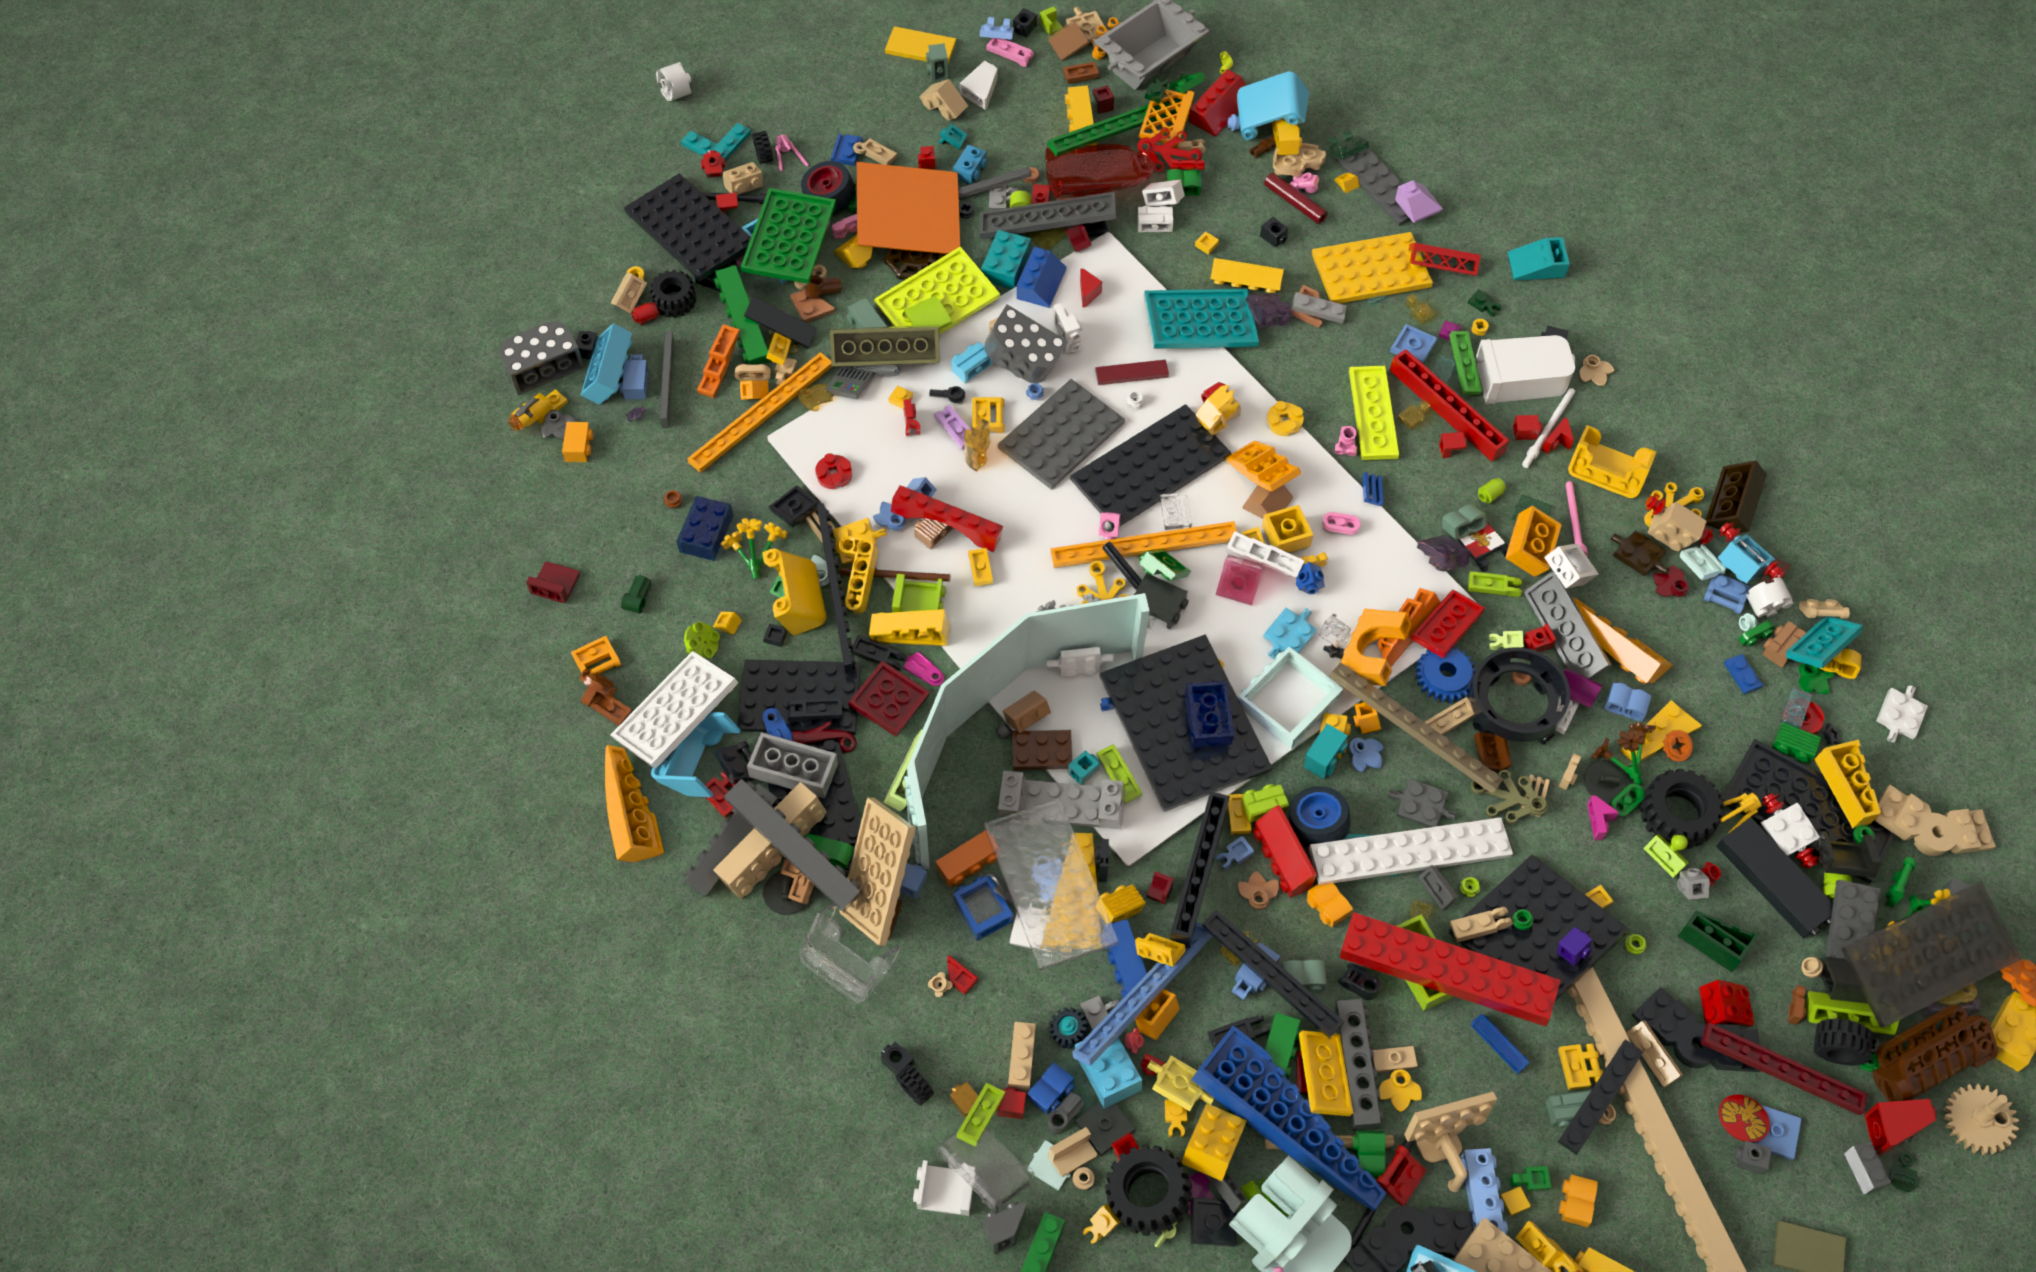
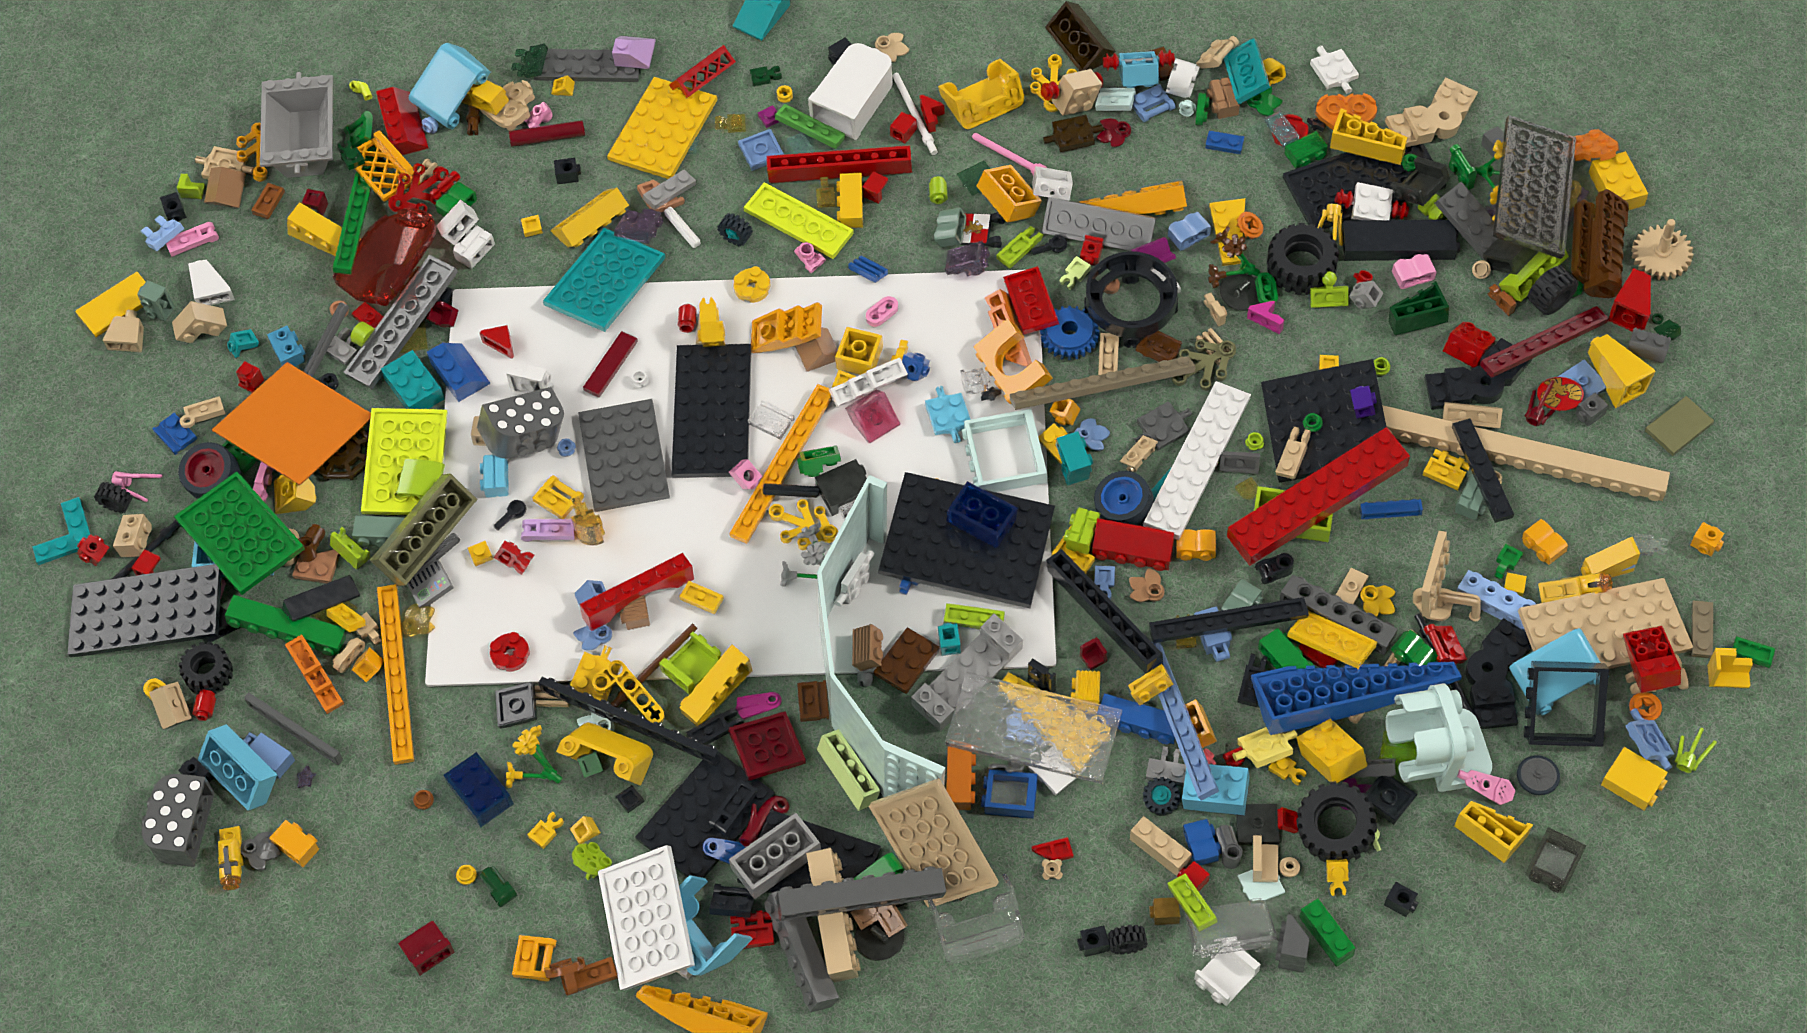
camera: 50 degrees left, 0 degrees up
(632, 568) = (466, 874): none -> yellow plate
(703, 595) = (544, 832): none -> yellow plate
(838, 311) = (349, 549): none -> lime hinge
(900, 65) = (125, 333): none -> tan torso
(1296, 339) = (682, 227): none -> white axle
(1322, 373) = (735, 229): none -> black wheel
(1385, 801) = (1138, 452): none -> tan hinge
(1423, 435) = (850, 200): none -> yellow brick
(1521, 609) = (1056, 244): none -> black plate
(1704, 1110) = (1535, 416): none -> dark red plant
(1756, 910) = (1413, 271): none -> bright pink brick
(1816, 1158) = (1620, 370): none -> yellow slope
(1880, 758) = (1361, 105): none -> orange plate

